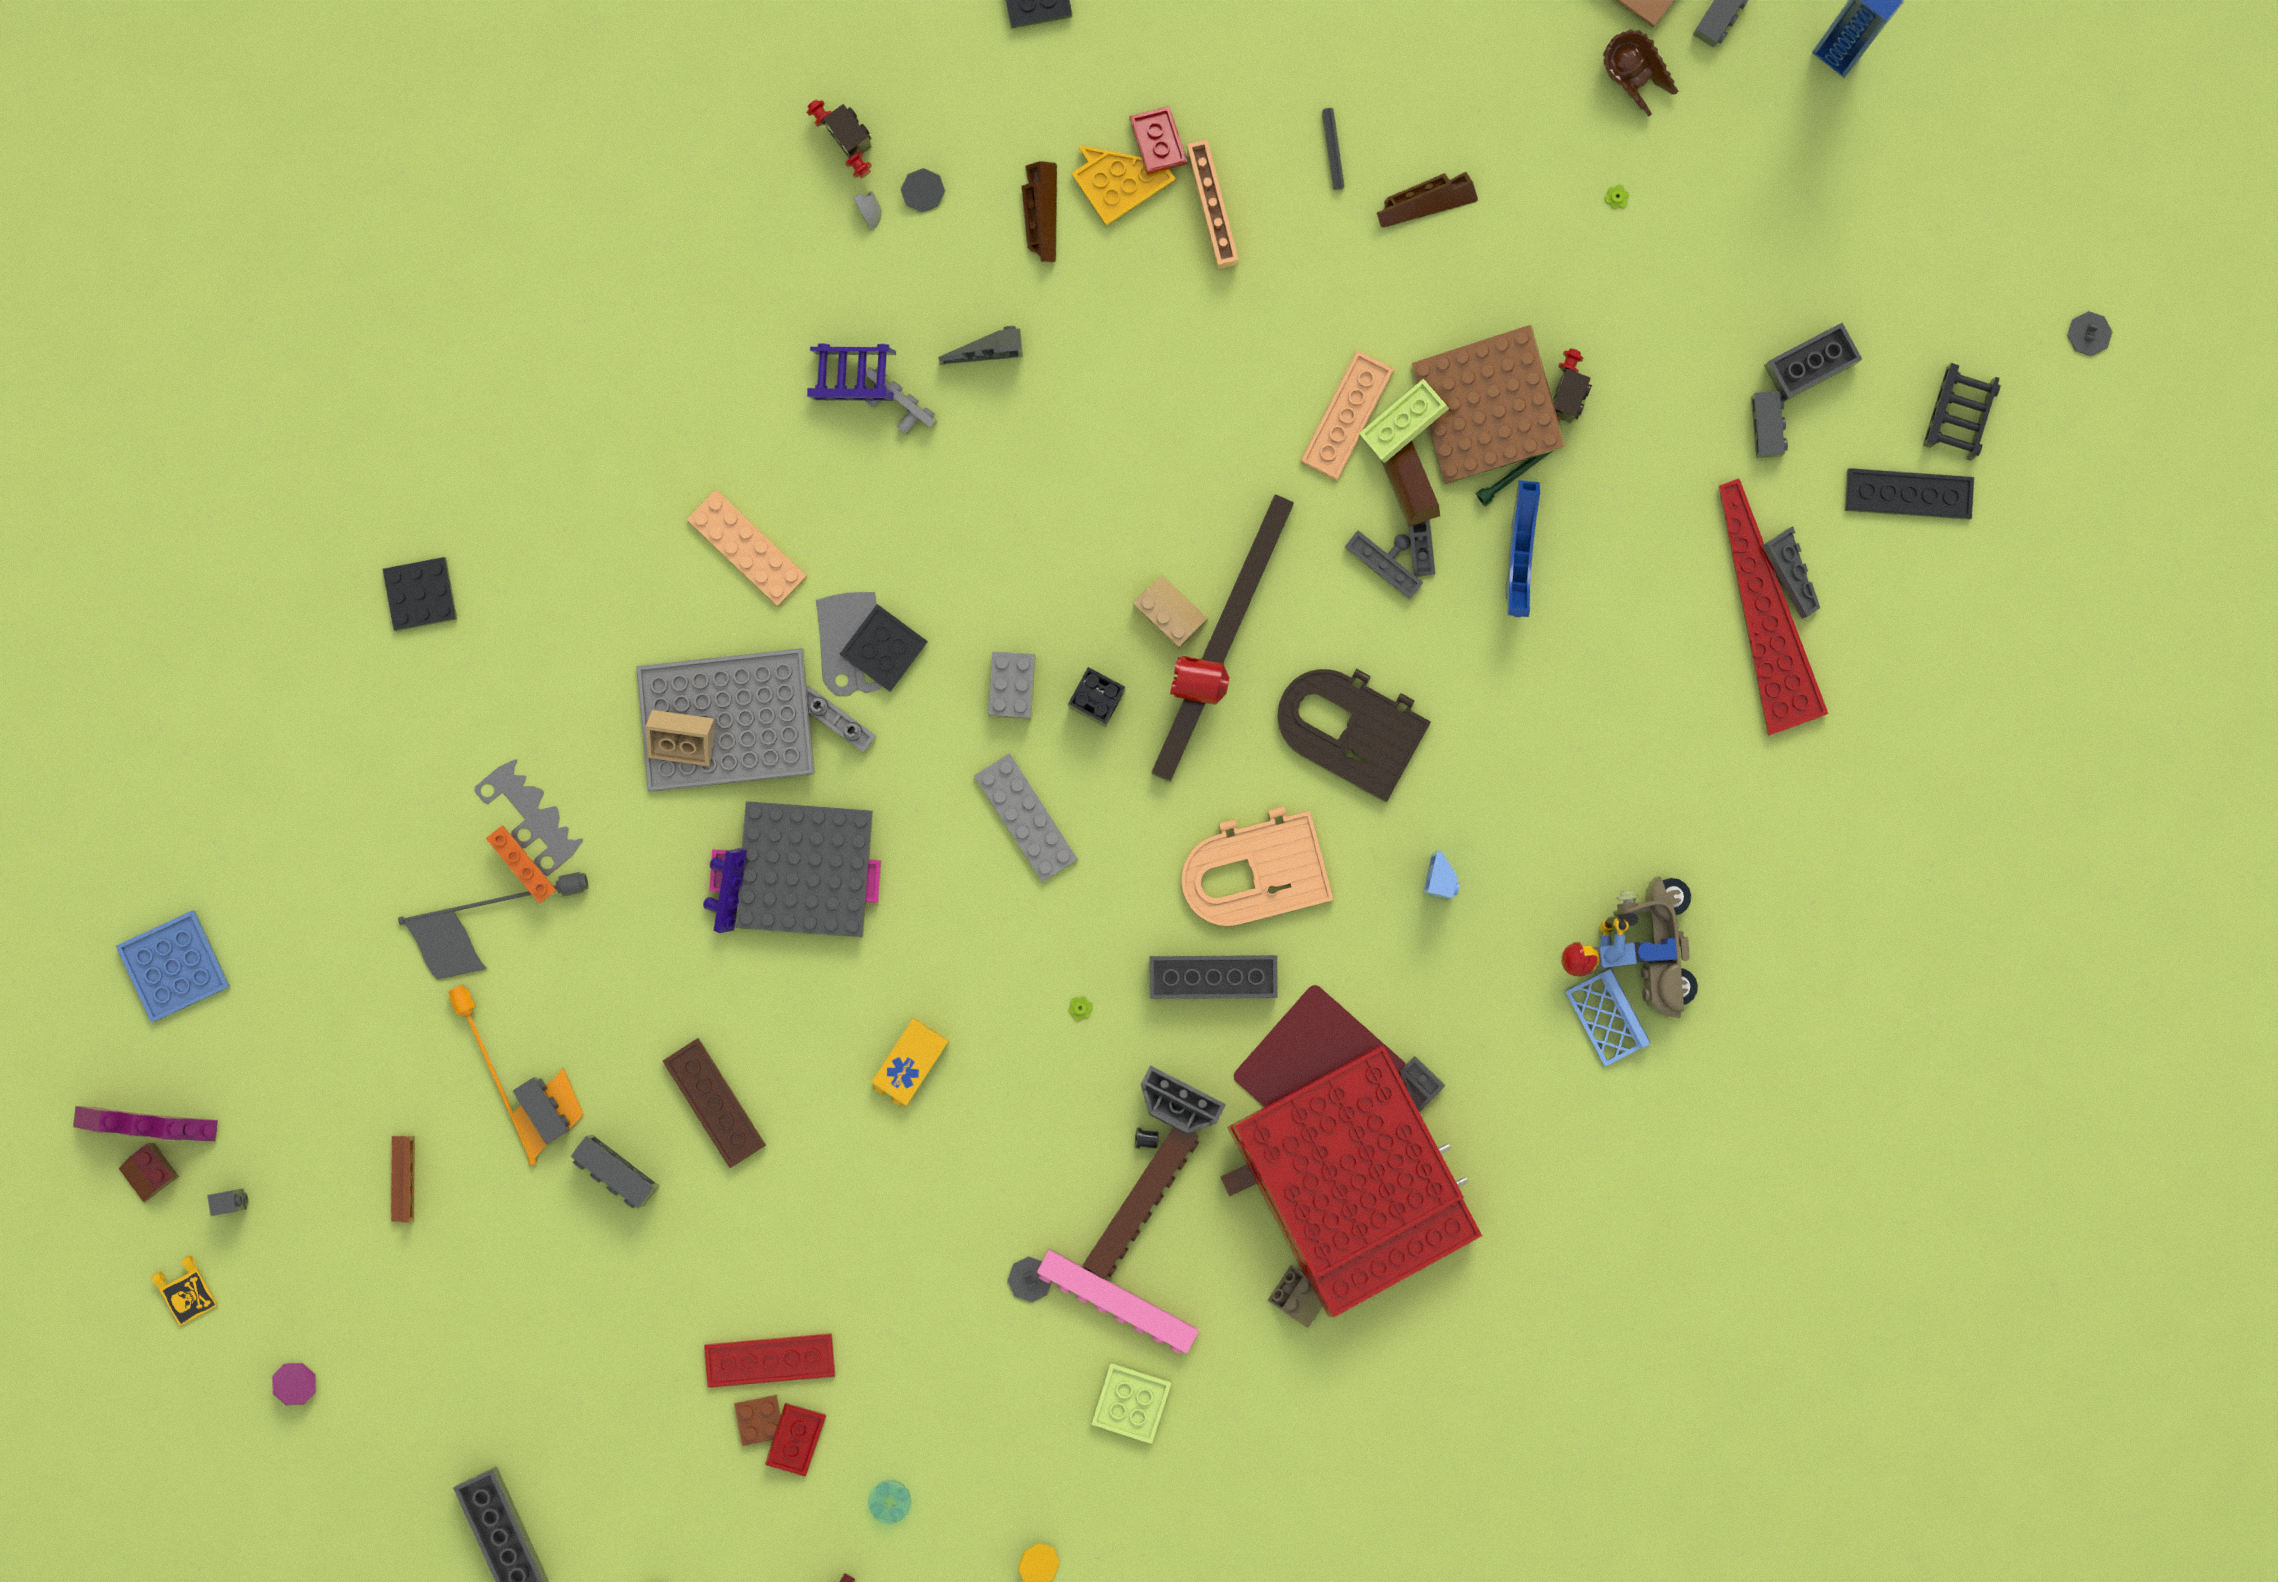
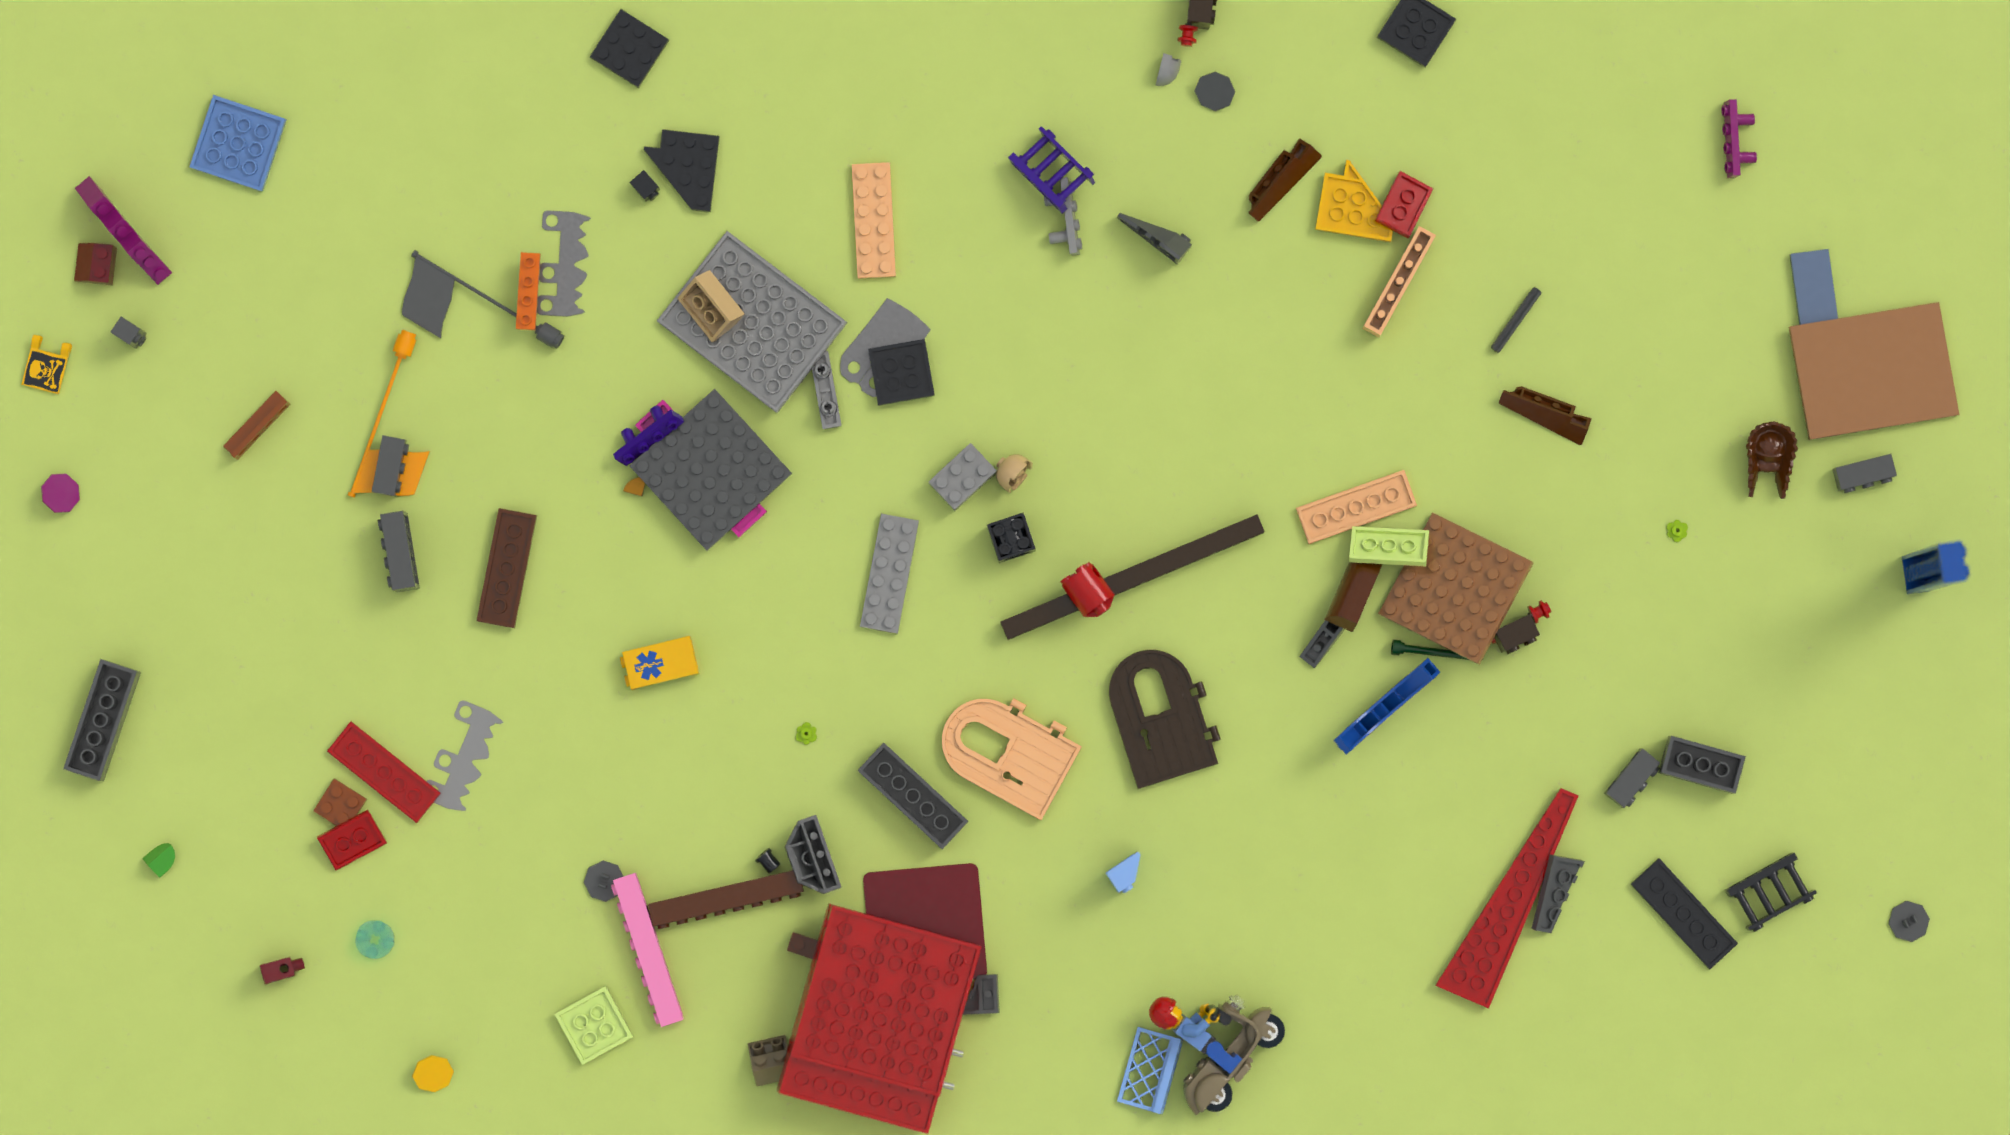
camera: 45 degrees right, 0 degrees up
(537, 692) = (645, 186): none -> black brick
(556, 643) = (689, 165): none -> black wing
(756, 940) = (635, 486): none -> pearl gold tile
(829, 1297) = (461, 767): none -> light grey piece
(1047, 643) = (1012, 471): none -> tan cylinder
(1170, 612) = (1114, 527): tan slope -> none
(1384, 563) = (1287, 629): dark grey plate -> none

